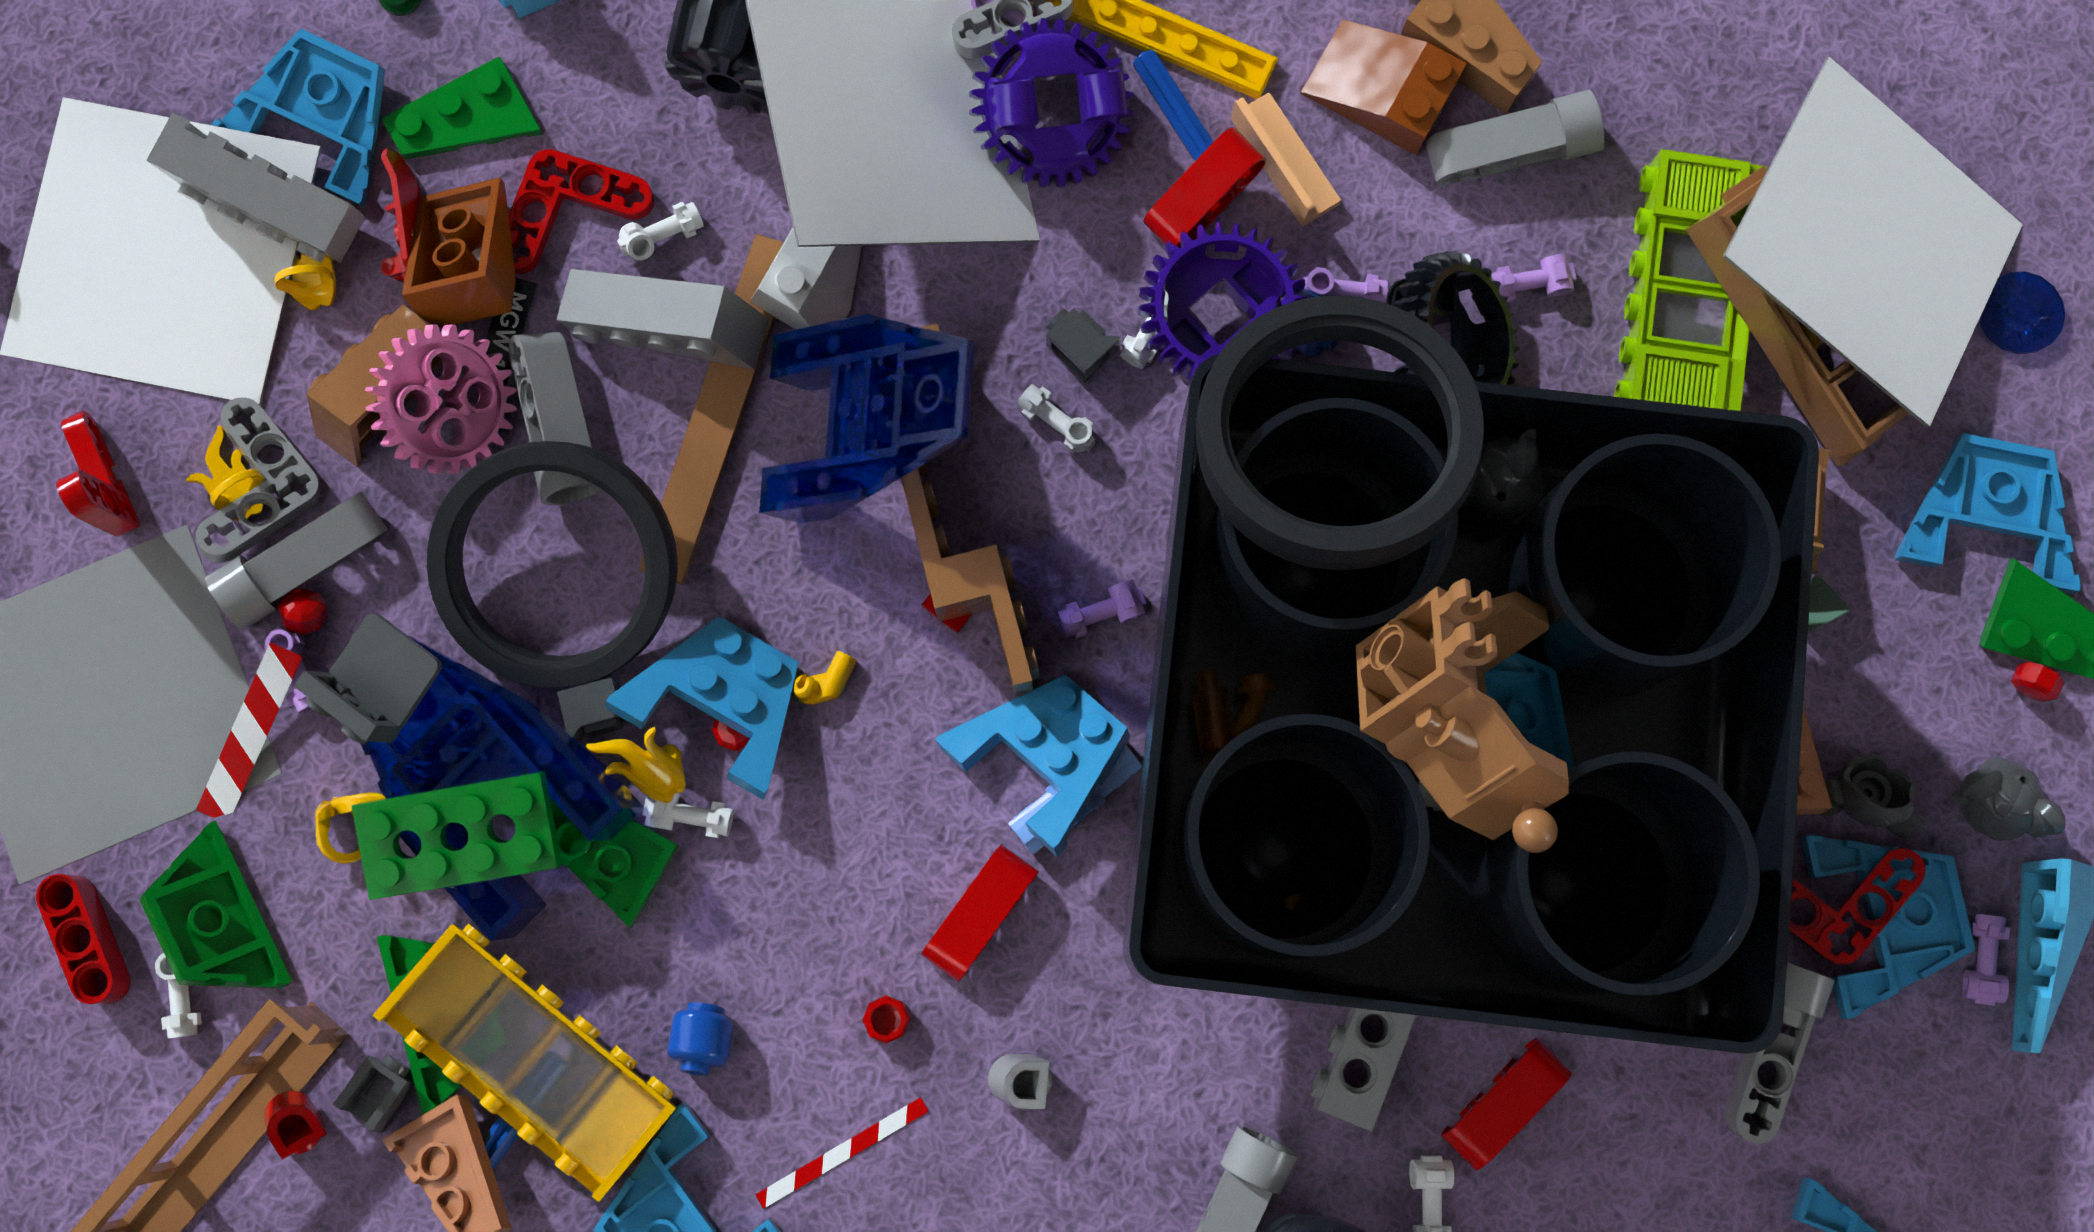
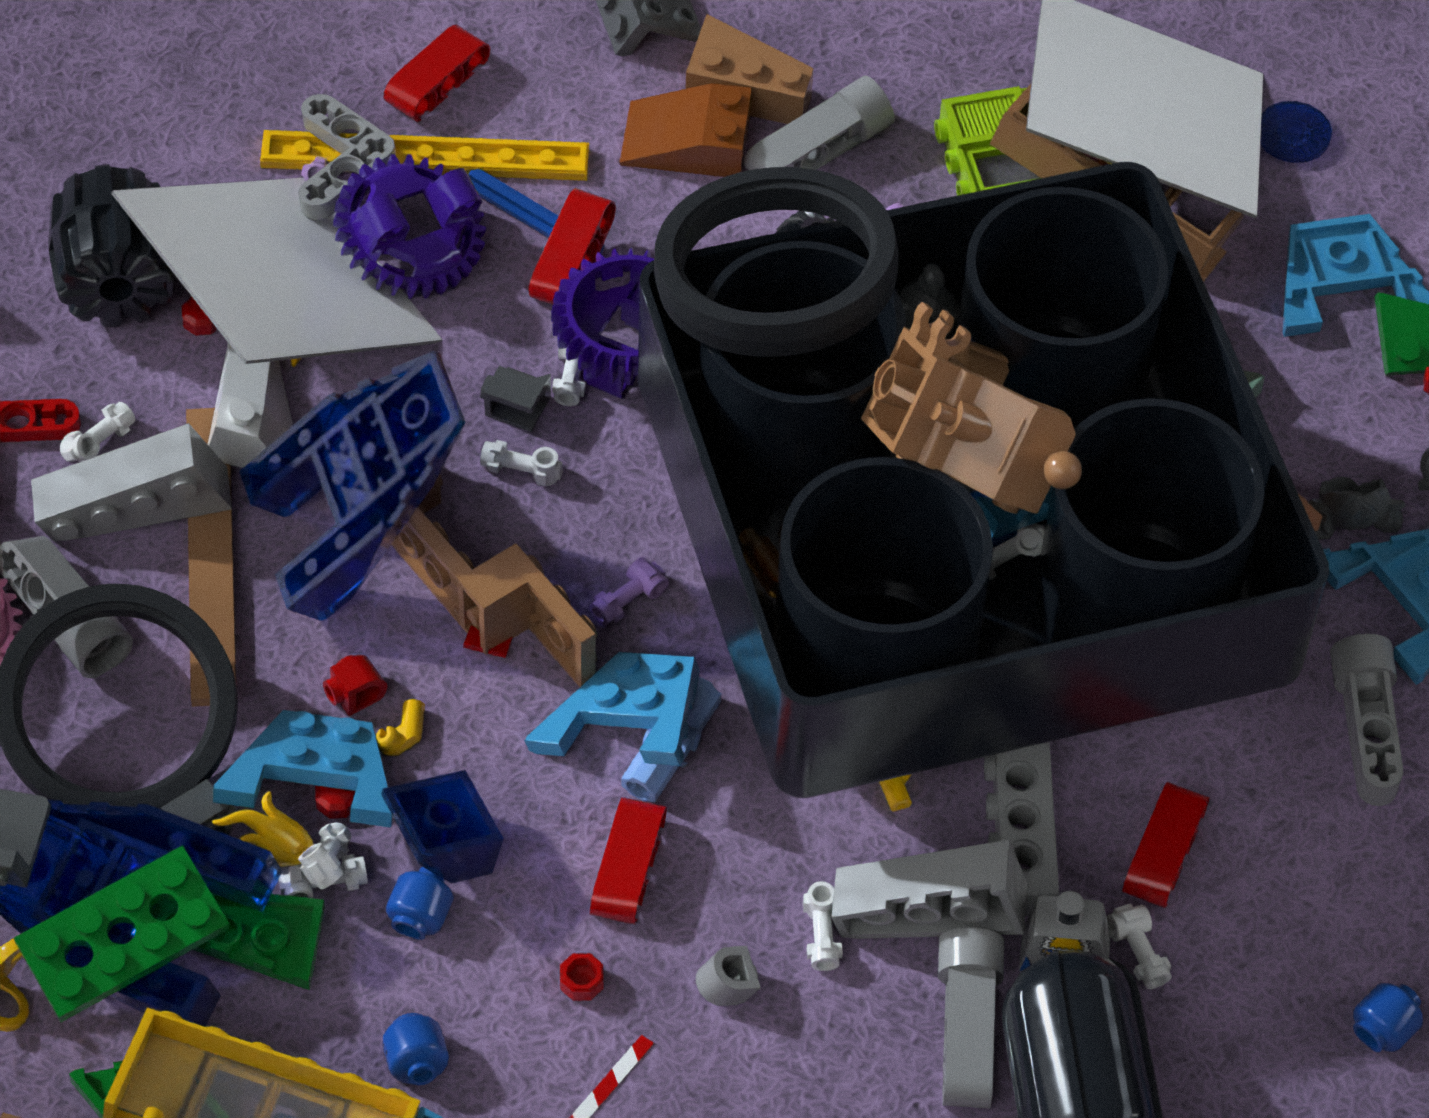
camera: 25 degrees left, 25 degrees down
(681, 810) = (321, 860): none -> white bar
(765, 882) = (419, 904): none -> blue head
(797, 613) = (354, 684): none -> red plate
(809, 821) = (446, 825): none -> clear blue slope
(1144, 1034) = (818, 906): none -> white bar
(1244, 1088) = (932, 894): none -> light grey wedge
(1287, 158) = (634, 214): light nougat panel -> none
(1357, 1175) = (1064, 925): none -> light grey torso
(1828, 920) = (1370, 606): red beam -> none

